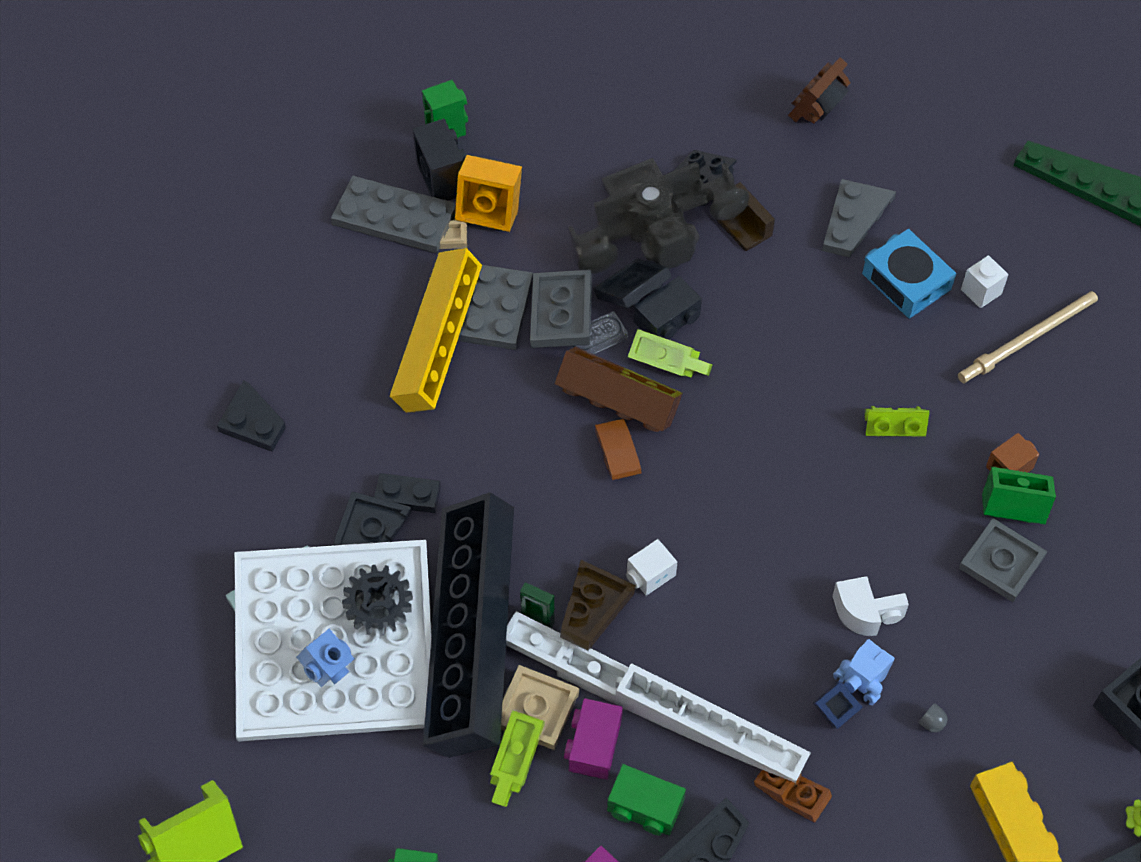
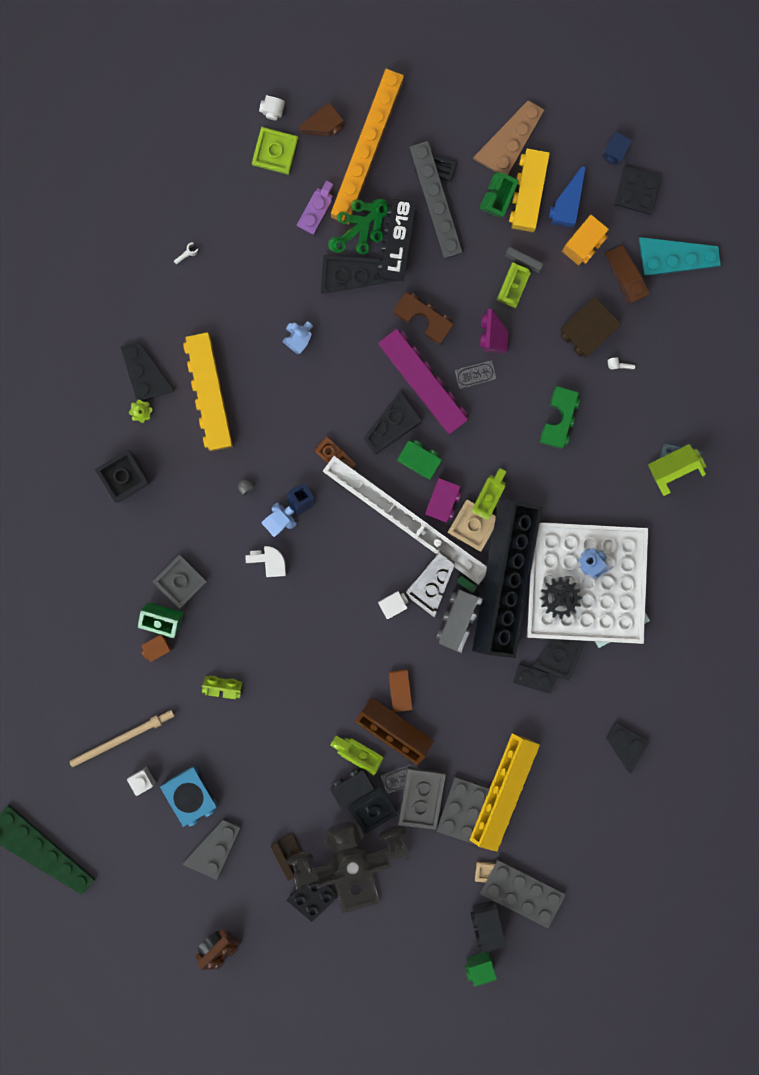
camera: 165 degrees left, 30 degrees up
(488, 193) = (459, 893): light orange brick -> none
(540, 548) = (457, 620): none -> dark grey wedge

